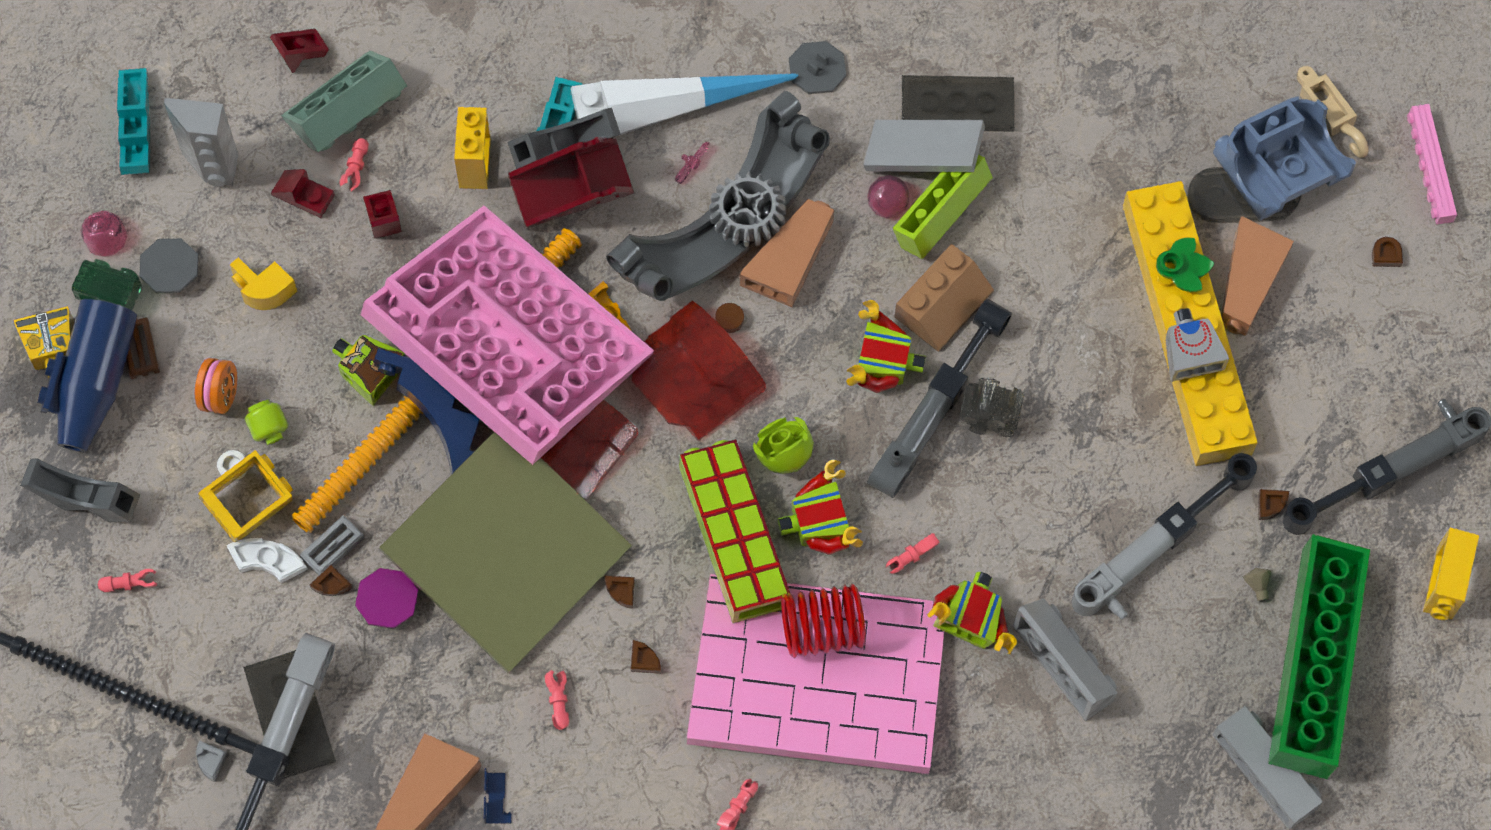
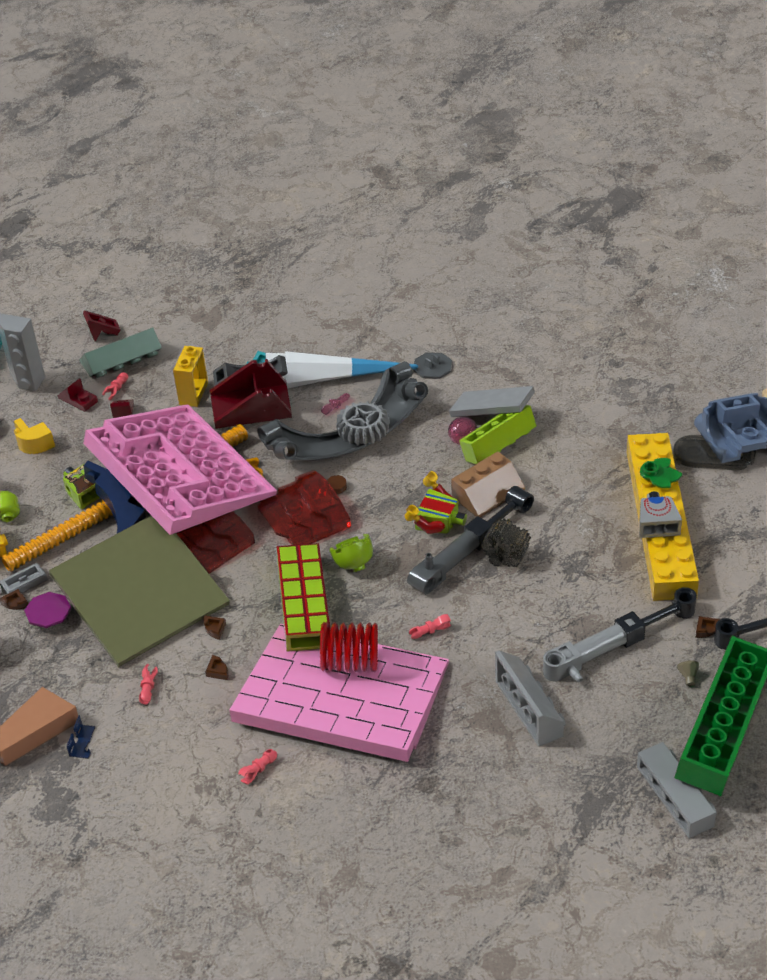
camera: 15 degrees right, 25 degrees down
(788, 256) = (386, 453): nougat slope -> none
(820, 515) = (368, 593): torso -> none
(960, 99) = (547, 389): clear smoke tile -> none
(973, 614) = (462, 662): torso -> none
(1252, 271) = (712, 492): nougat slope -> none

